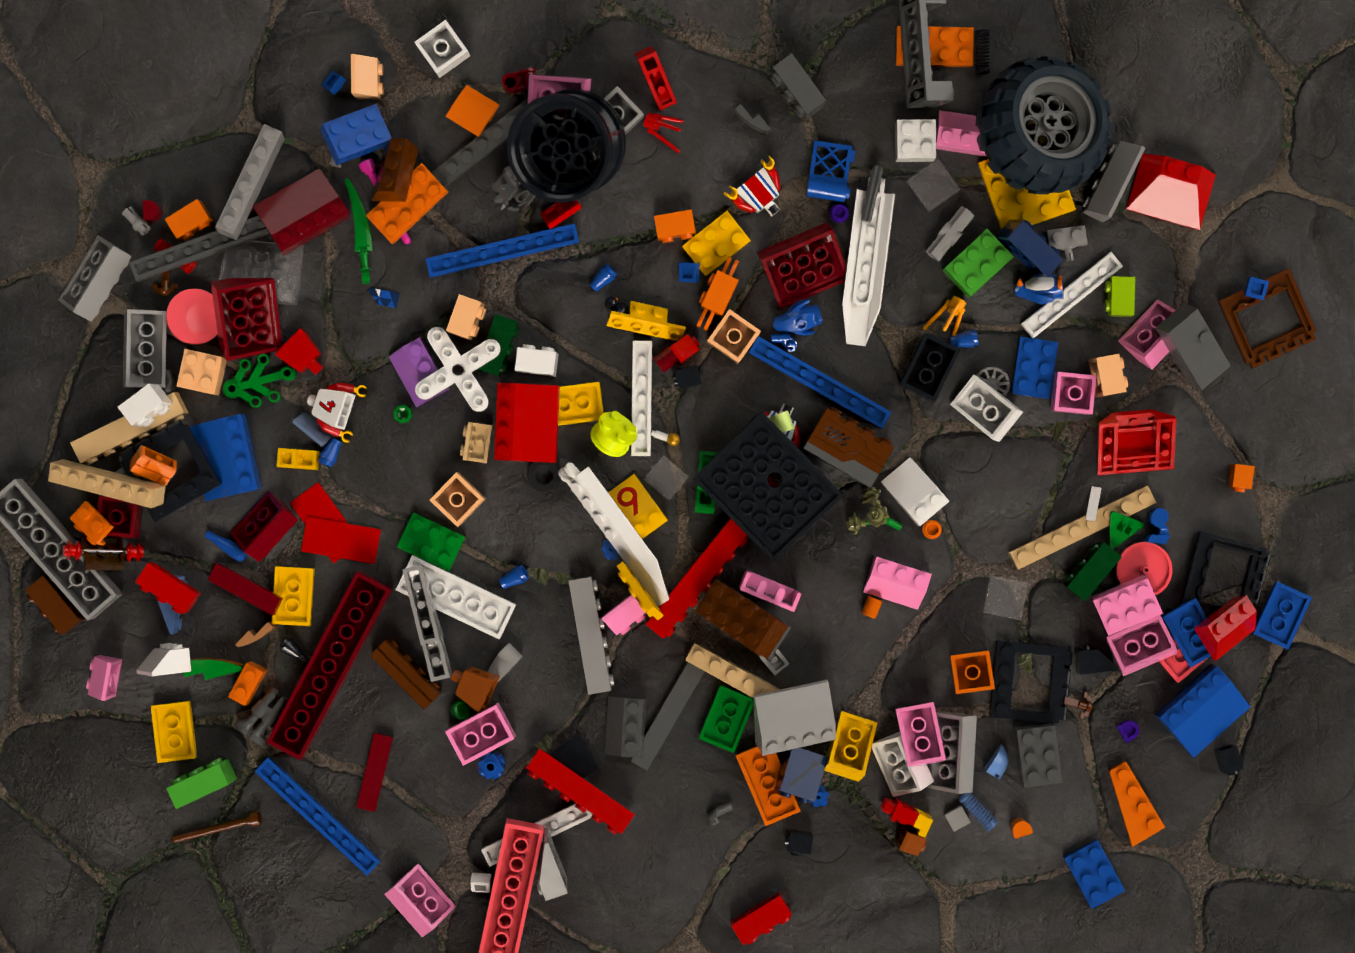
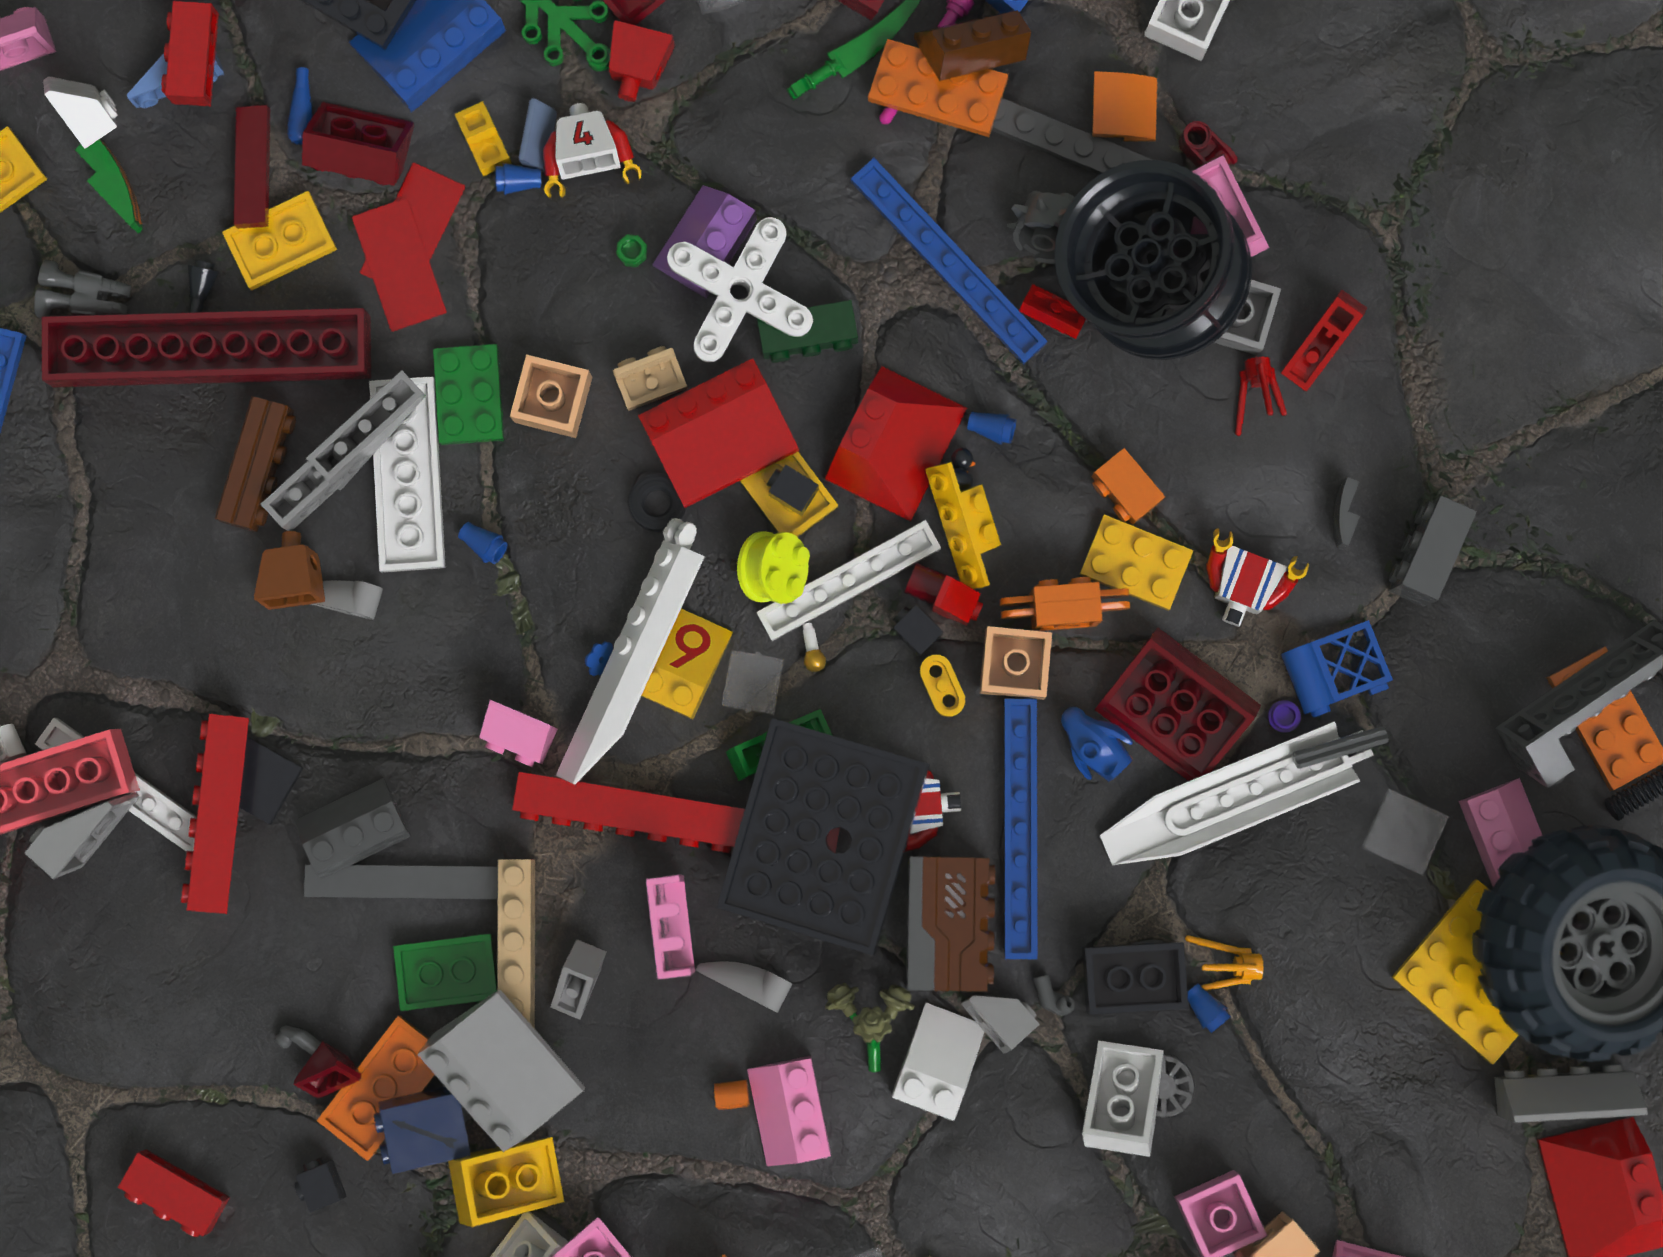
camera: 60 degrees right, 5 degrees down
(248, 683) = (116, 245): orange brick -> none
(251, 636) = (189, 215): medium nougat slope -> none
(375, 772) = (85, 500): dark red tile -> none
(385, 298) = (785, 133): dark blue sticker -> none
(460, 710) = (243, 572): green tile -> none
(466, 318) = (821, 261): light nougat brick -> none
(480, 733) = (224, 621): bright pink brick -> none
(495, 759) = (198, 664): blue brick -> none
(536, 361) = (815, 396): white brick -> none
(578, 401) = (792, 489): none -> black brick
(582, 333) = (893, 442): none -> red slope
(590, 635) = (458, 701): light grey brick -> none
(637, 590) = (562, 729): yellow plate -> none
(688, 272) = (1071, 545): blue plate -> none
(723, 380) = (943, 685): none -> yellow plate
(742, 619) = (604, 910): reddish brown piece -> none
(744, 807) = (327, 1072): none -> dark red slope
(783, 421) = (931, 805): yellowish green brick -> none
(786, 340) = (1054, 742): blue arm -> none
(819, 565) = (749, 981): none -> light grey piece
(822, 801) = (402, 1185): blue plant -> none
(912, 447) = (1002, 1019): none -> light grey slope
(915, 140) = (1455, 767): white brick -> none
(916, 416) = (1052, 1000): none -> dark grey arm
(931, 529) = (897, 1119): orange plate -> none
(949, 233) = (1349, 896): light grey piece -> none
(977, 263) = (1329, 962): bright green brick -> none
(1029, 247) = (1398, 1026): dark blue brick -> none
(1034, 367) = (1224, 1136): blue plate -> none
(1040, 289) = (1346, 1078): blue animal -> none
(1067, 239) = (1441, 1076): light grey plate -> none
(1072, 295) = (1364, 1130): white tile -> none
(1120, 296) = (1404, 1205): lime brick -> none

